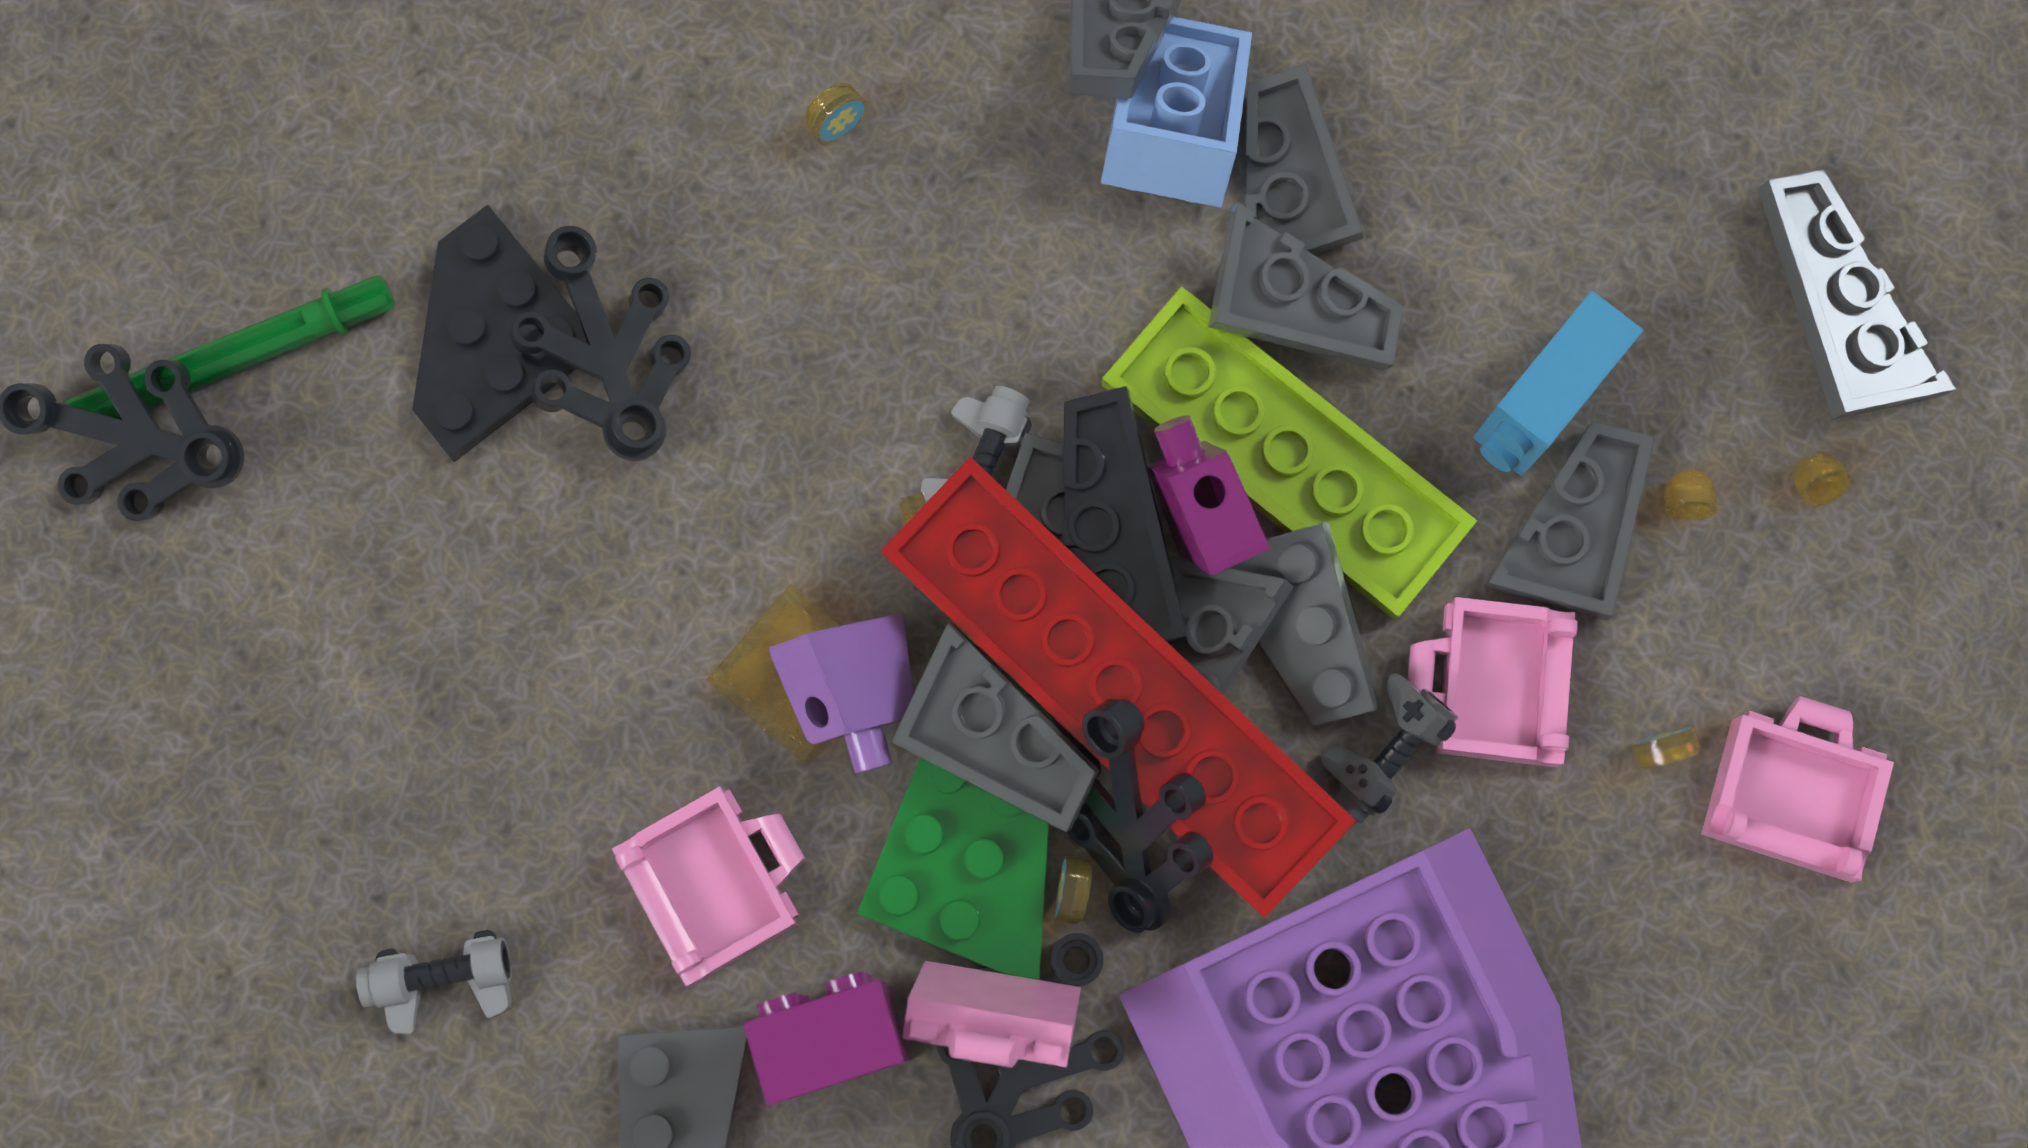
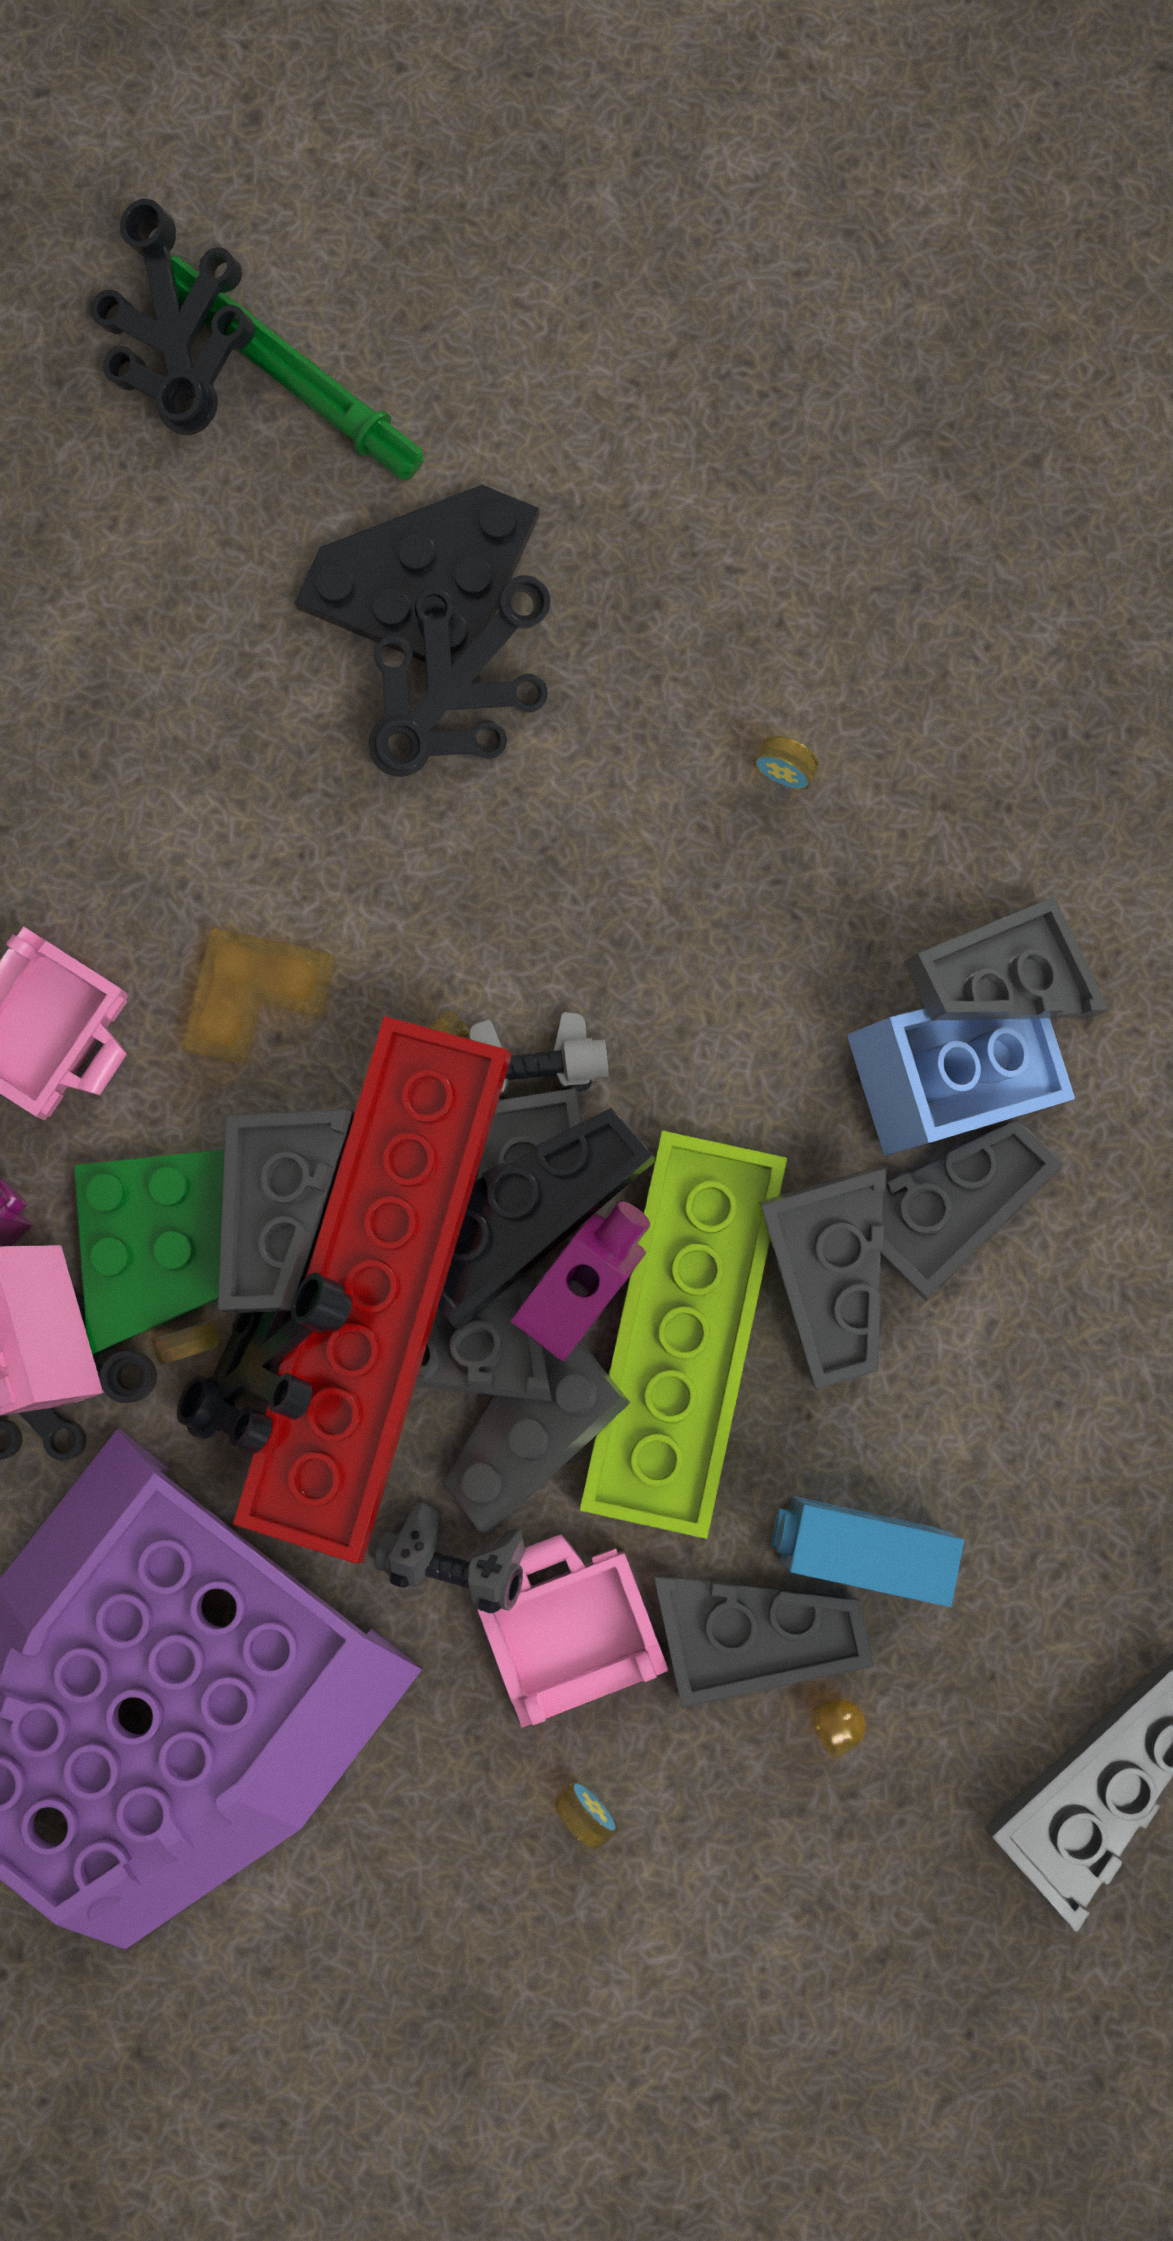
camera: 65 degrees right, 5 degrees up
(849, 684) = (262, 1053): medium lavender torso -> none
(1798, 792) = (607, 1959): bright pink piece -> none
(1820, 479) = (919, 1842): clear yellow hinge -> none

